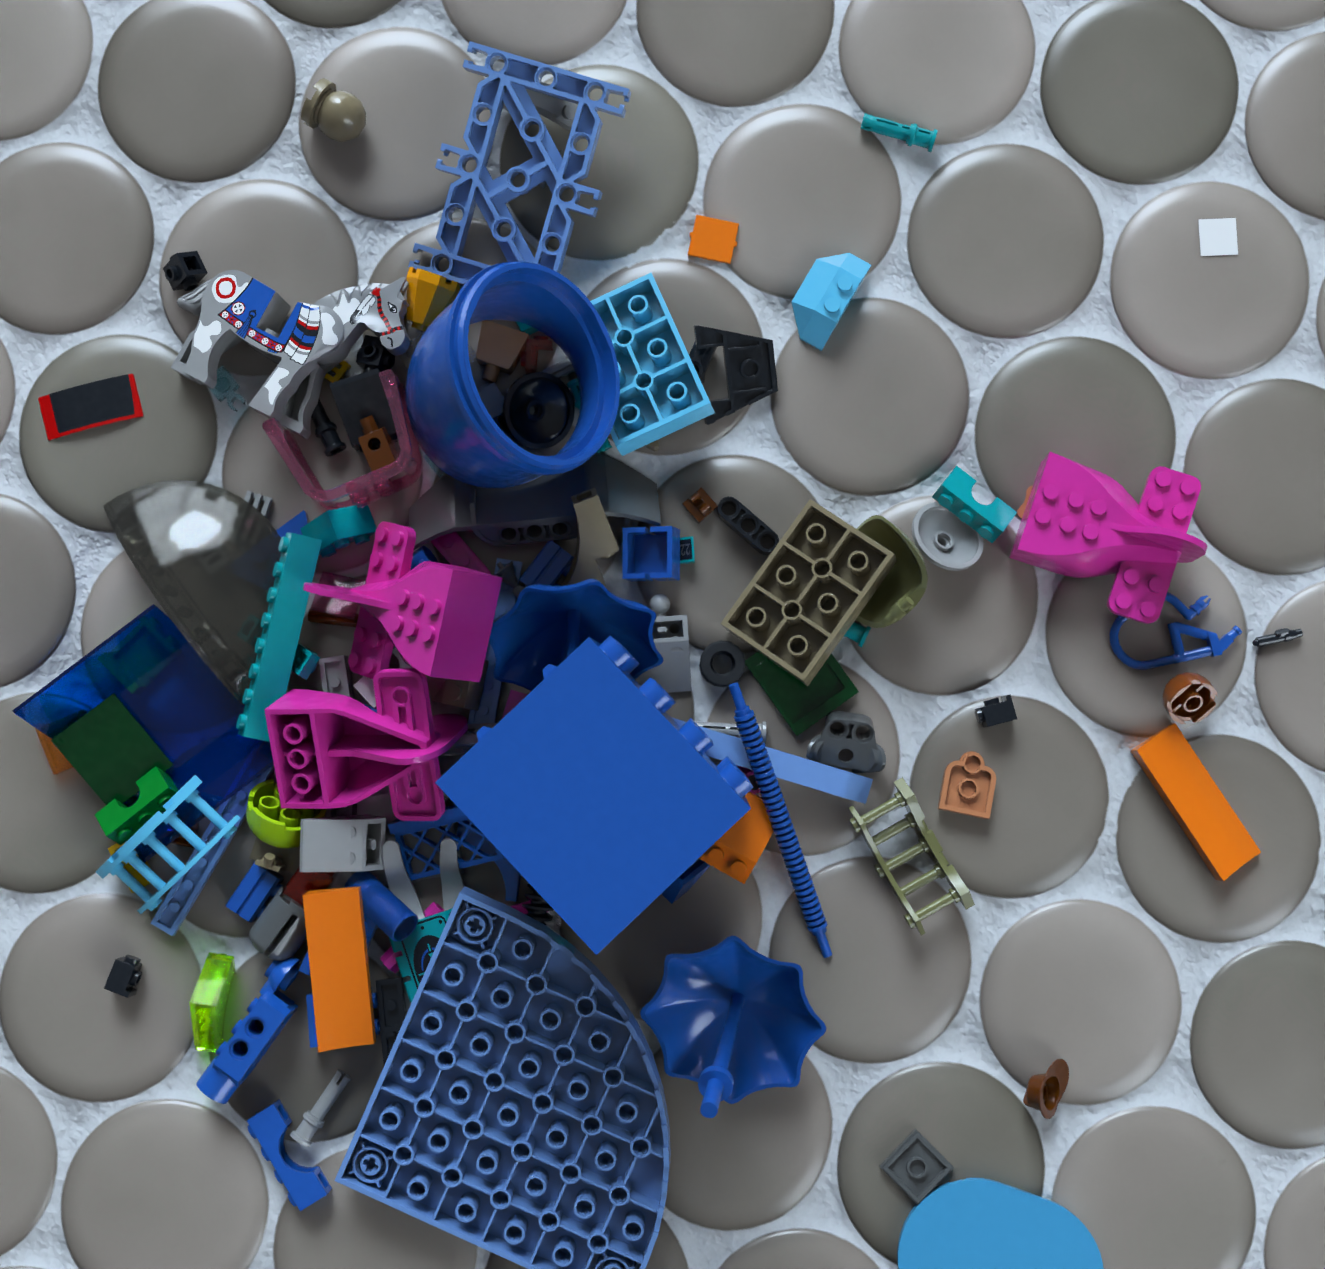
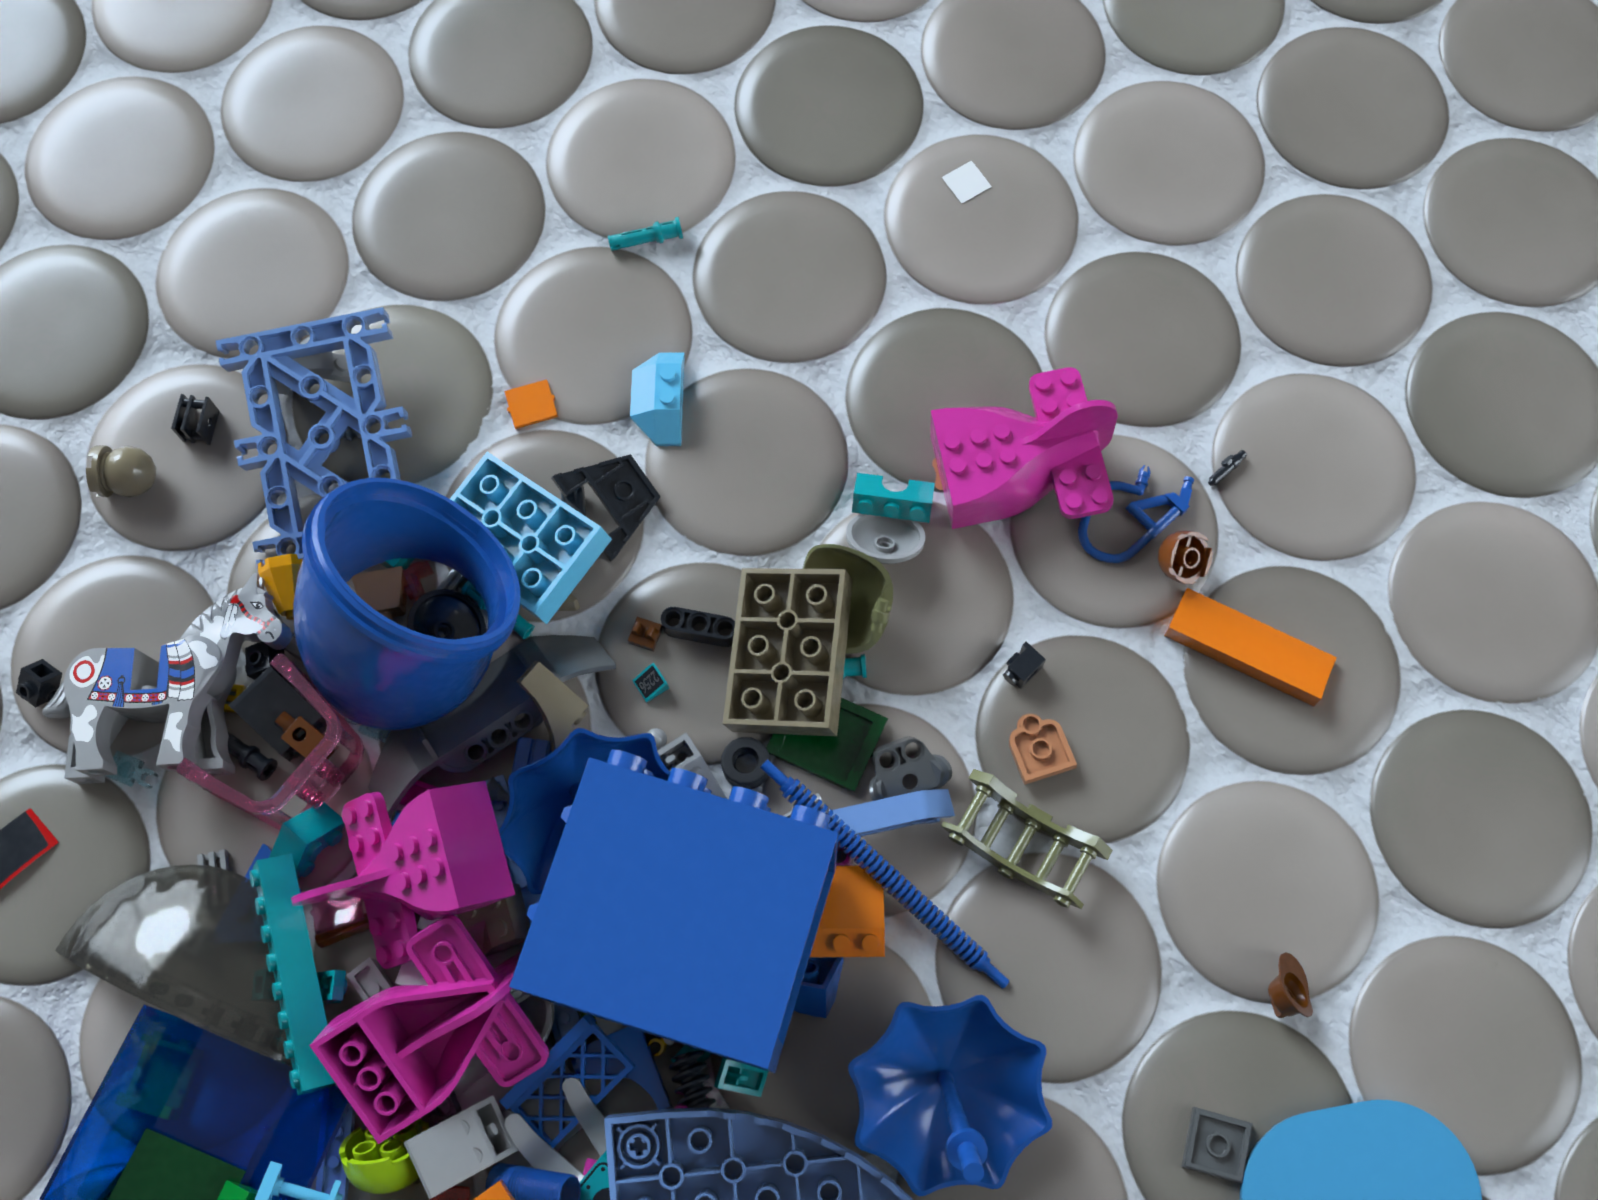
camera: 30 degrees left, 15 degrees down
(410, 96) = (187, 426): none -> black piece
(651, 555) = (622, 701): blue piece -> none

